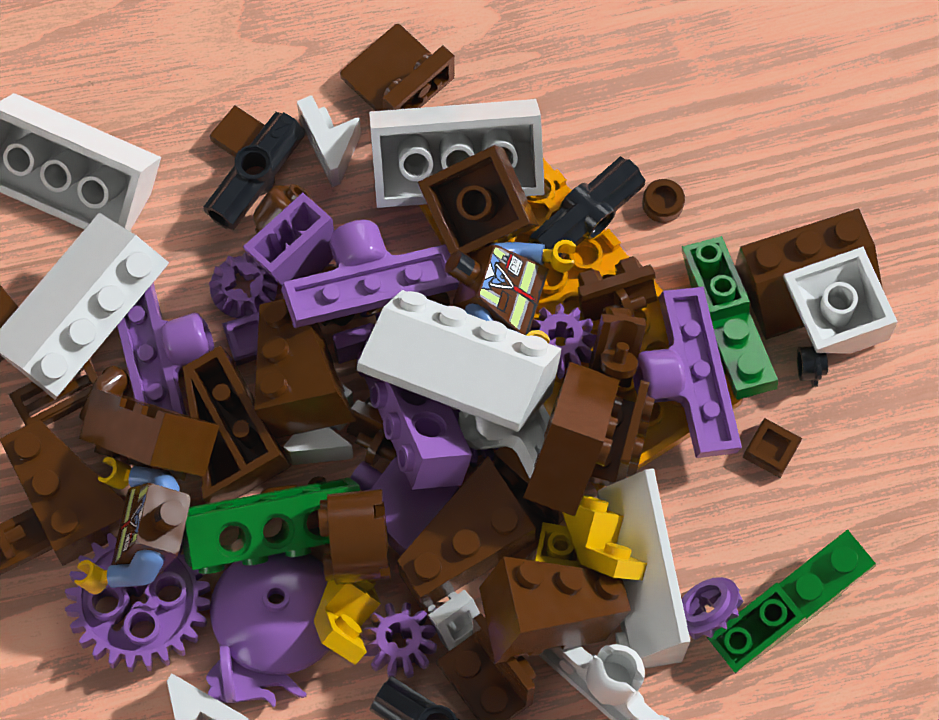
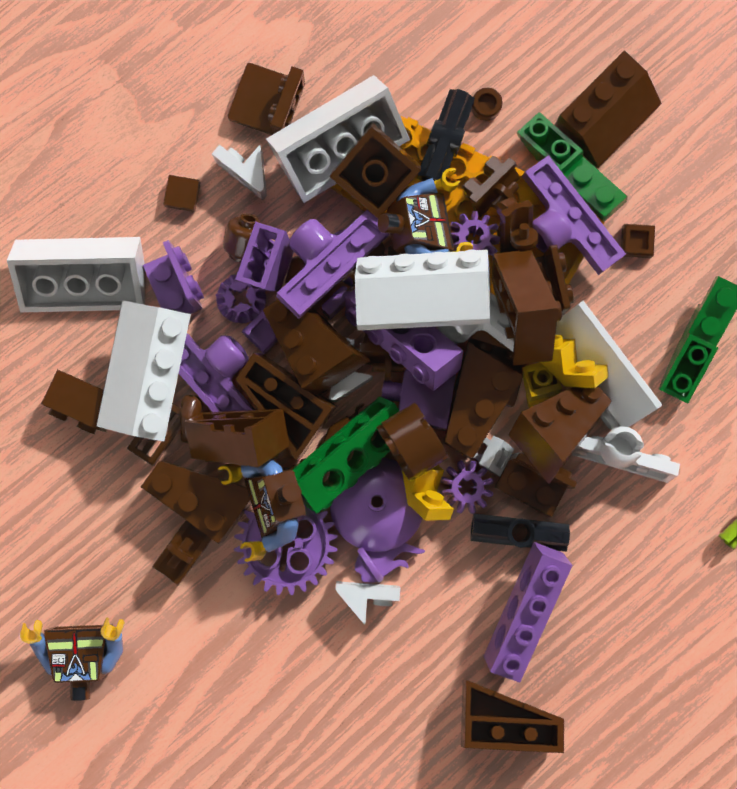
camera: 25 degrees left, 15 degrees up
(172, 225) = (171, 282): none -> medium lavender bracket
(240, 189) = (206, 233): black piece -> none
(718, 593) = (656, 357): medium lavender gear -> none
(811, 365) = (638, 172): black plate -> none
(842, 303) = (642, 121): white slope -> none

